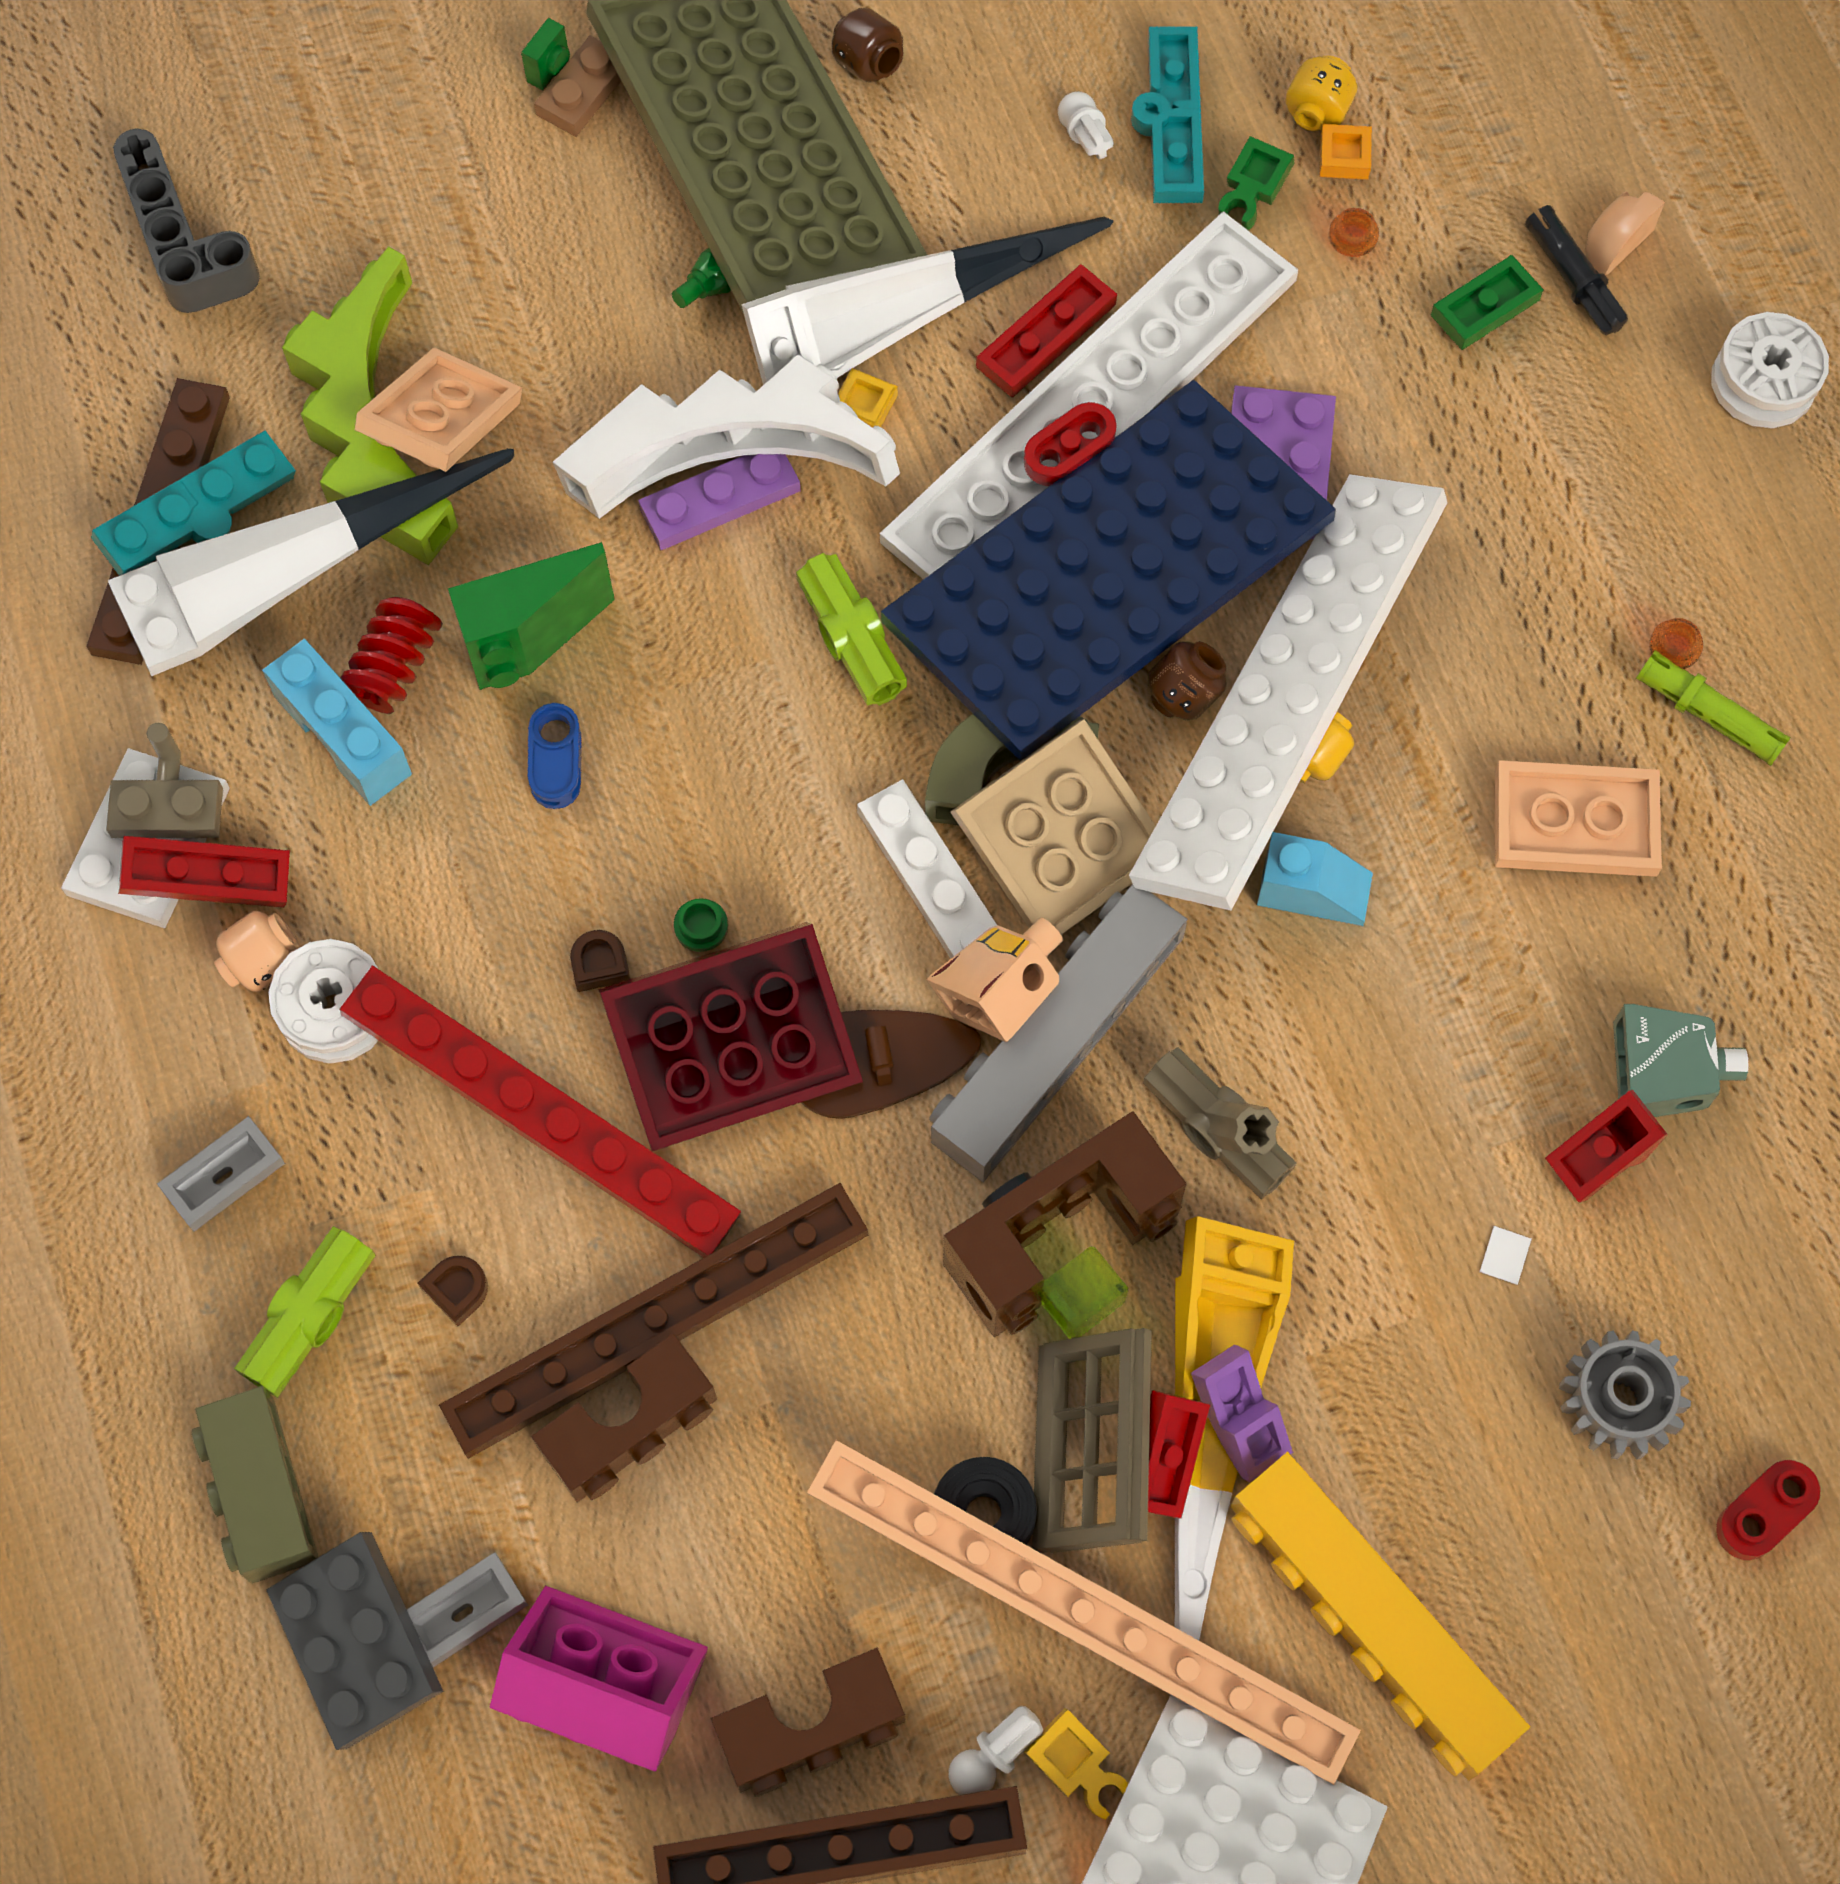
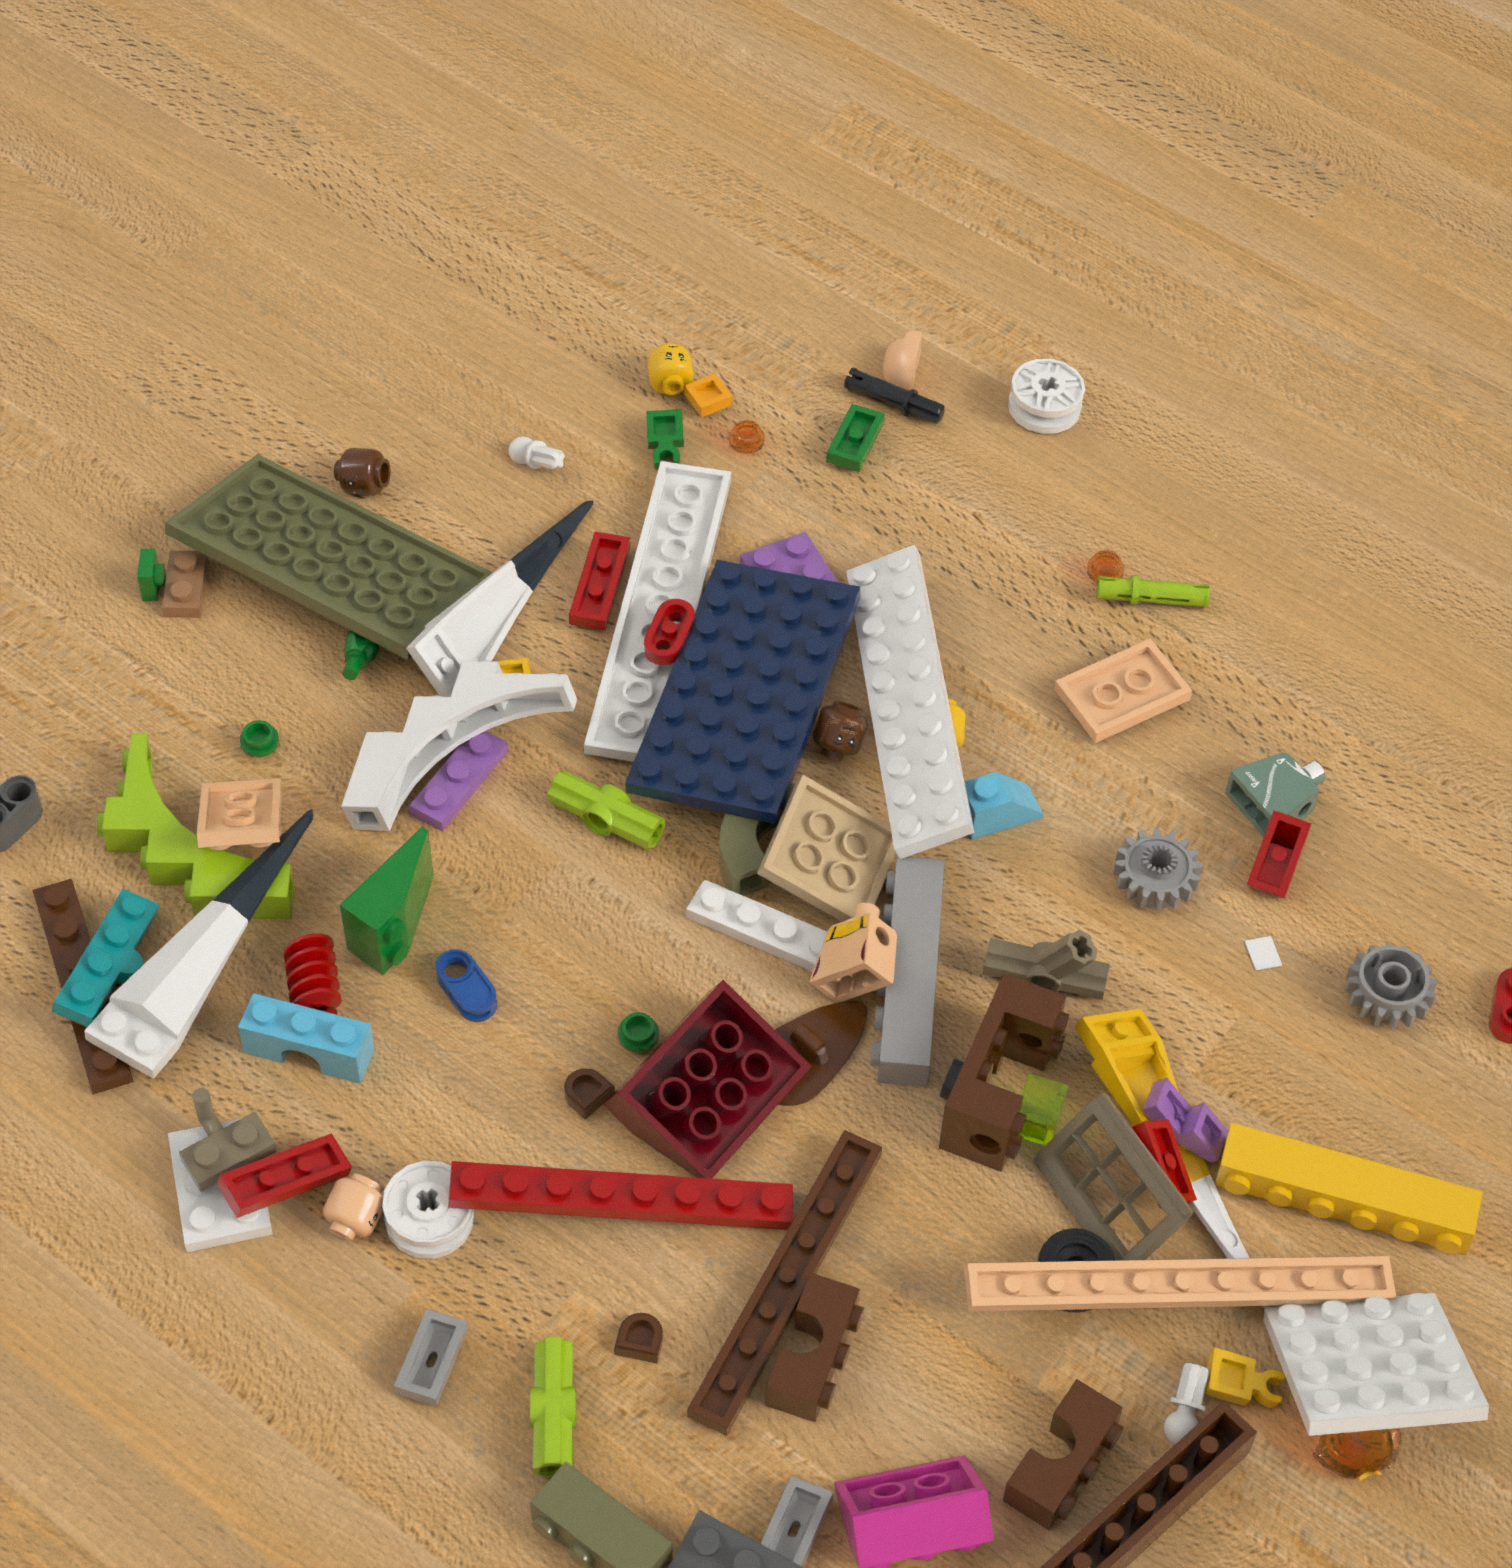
camera: 35 degrees left, 15 degrees down
(533, 325) = (259, 739): none -> green plate
(1173, 115) = (587, 423): teal hinge -> none
(1455, 1050) = (1157, 870): none -> light grey gear

